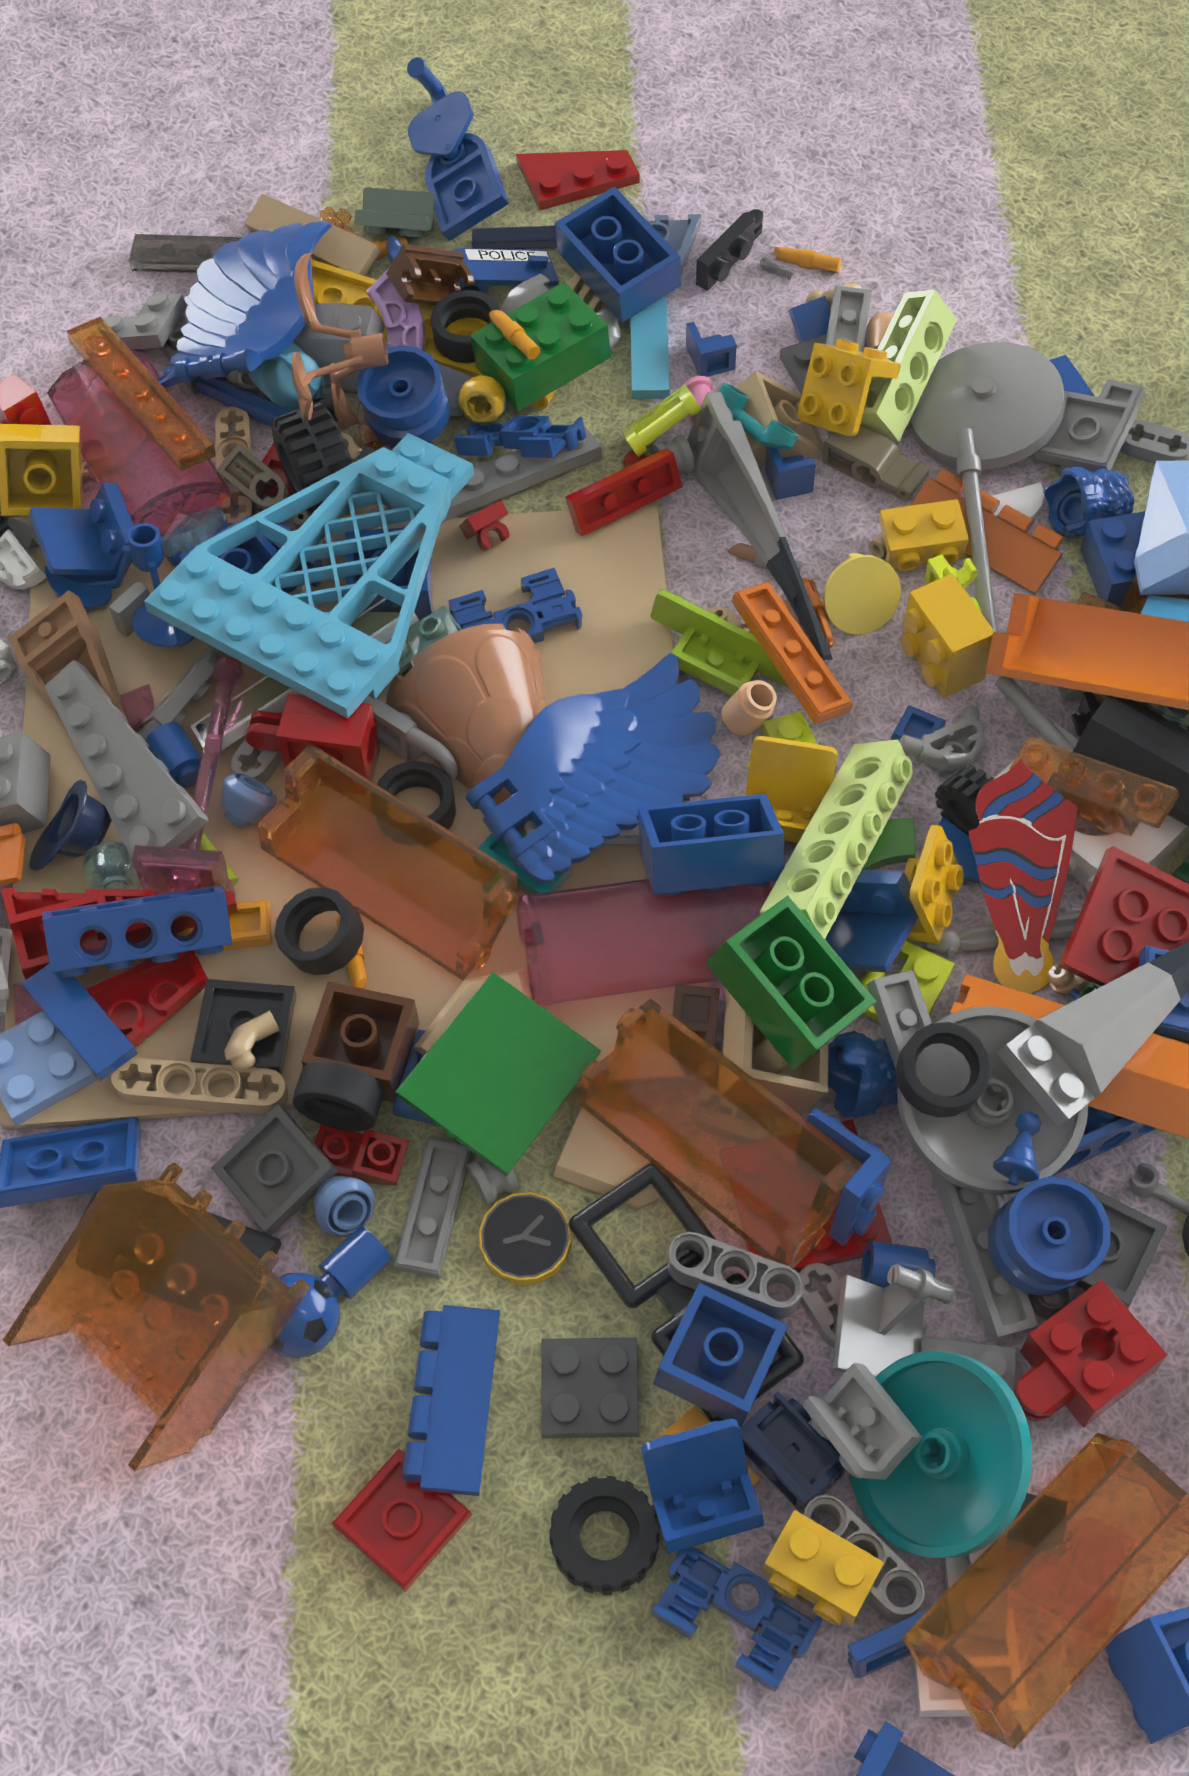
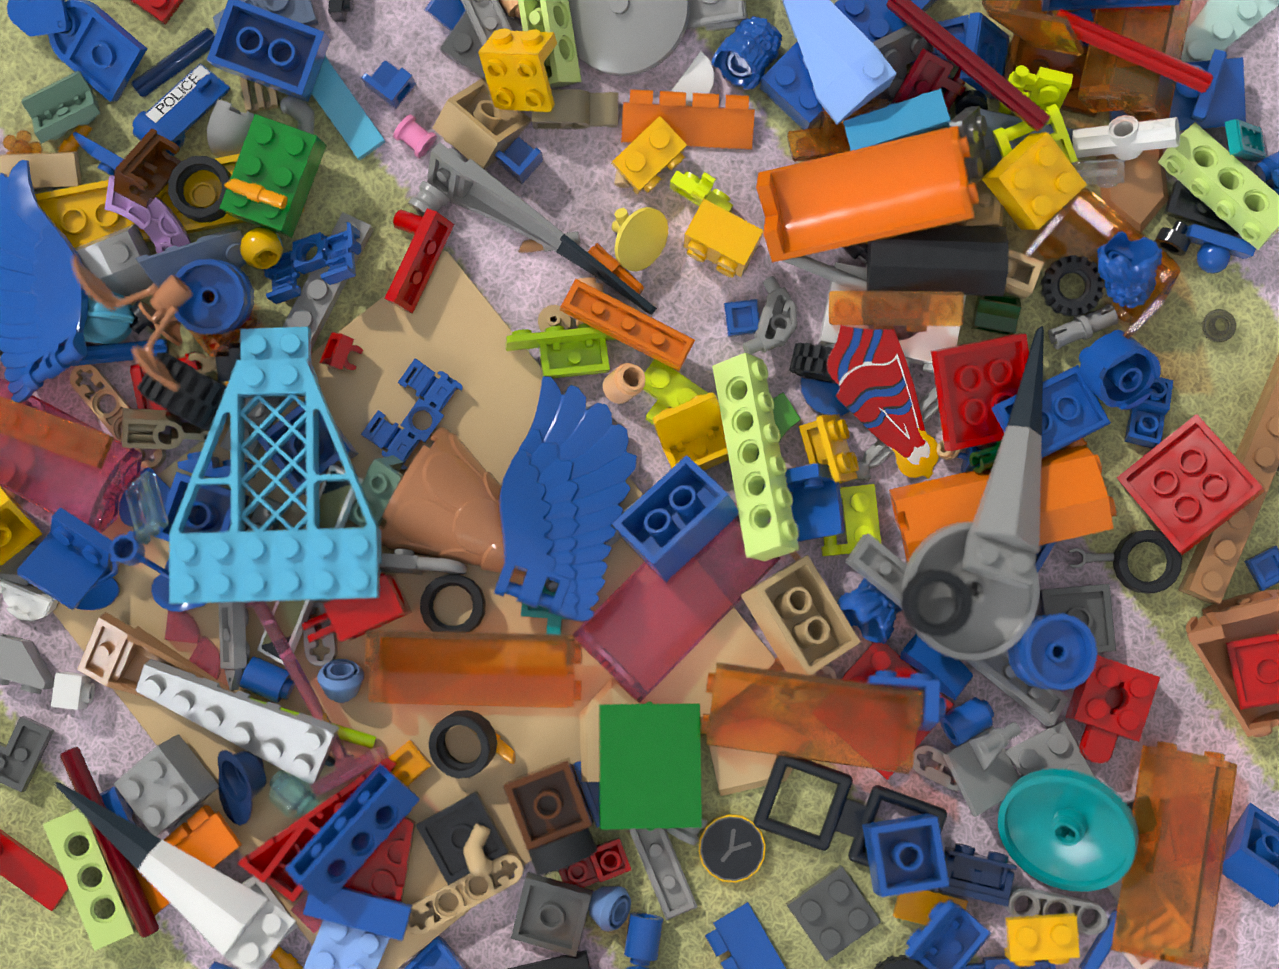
camera: 30 degrees left, 25 degrees up
(126, 605) = (142, 588): light grey tile -> none
(135, 666) = (182, 628): none -> clear pink tile
(661, 419) = (403, 181): neon yellow plate -> none
(697, 1009) = (742, 641): reddish brown plate -> none
(718, 1256) = (896, 802): light grey beam -> none
(774, 436) = (503, 150): teal bar -> none
(790, 982) = (802, 599): green brick -> none
(863, 1424) = (1013, 842): light grey bracket -> none
(907, 1195) = (948, 670): none -> blue slope
(969, 470) = (652, 84): light grey bar -> none
(1018, 1158) = (1012, 623): blue piece -> none

